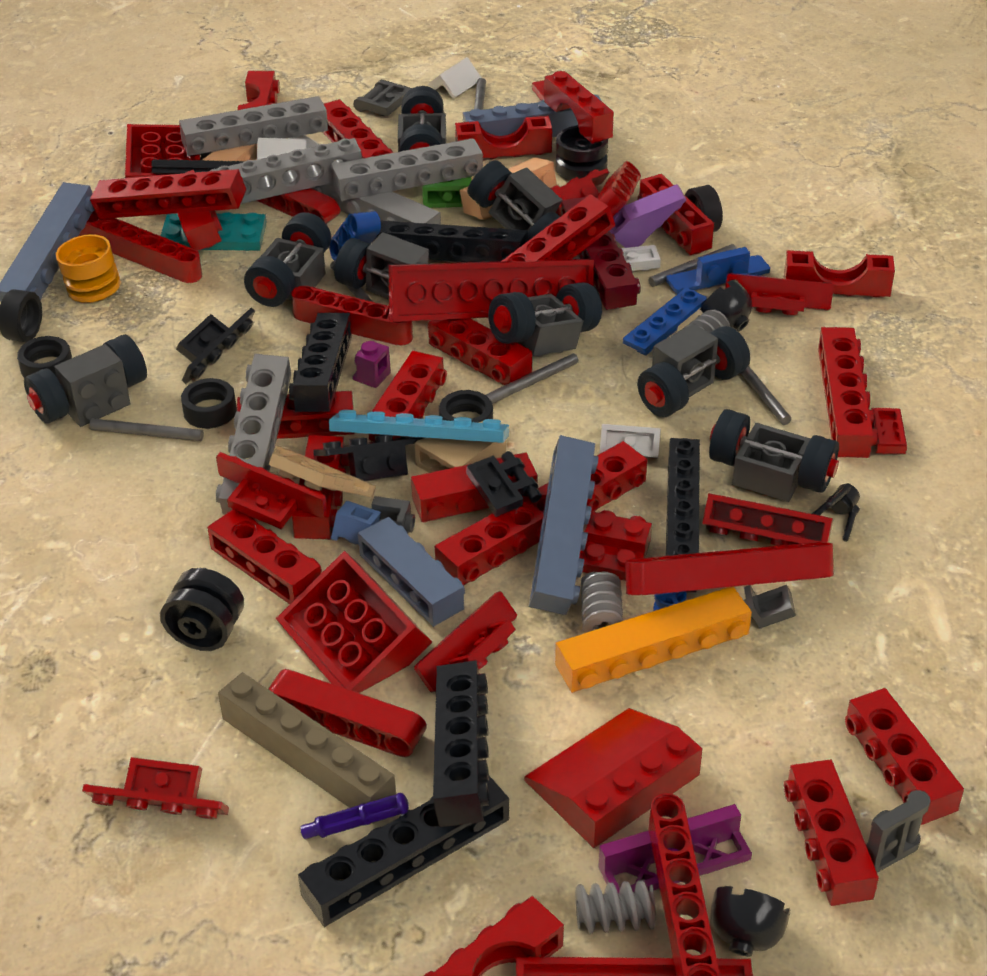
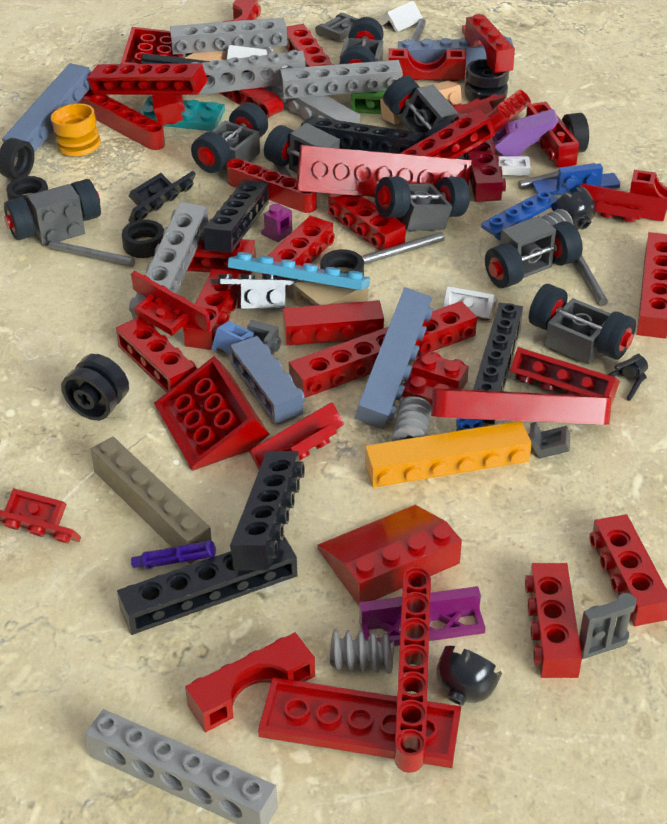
camera: 10 degrees right, 0 degrees up
(317, 474) = (208, 297): tan wing -> none
(351, 713) = (192, 479): red beam -> none
(361, 226) = (289, 116): blue beam -> none
(496, 487) = (347, 323): black plate -> none

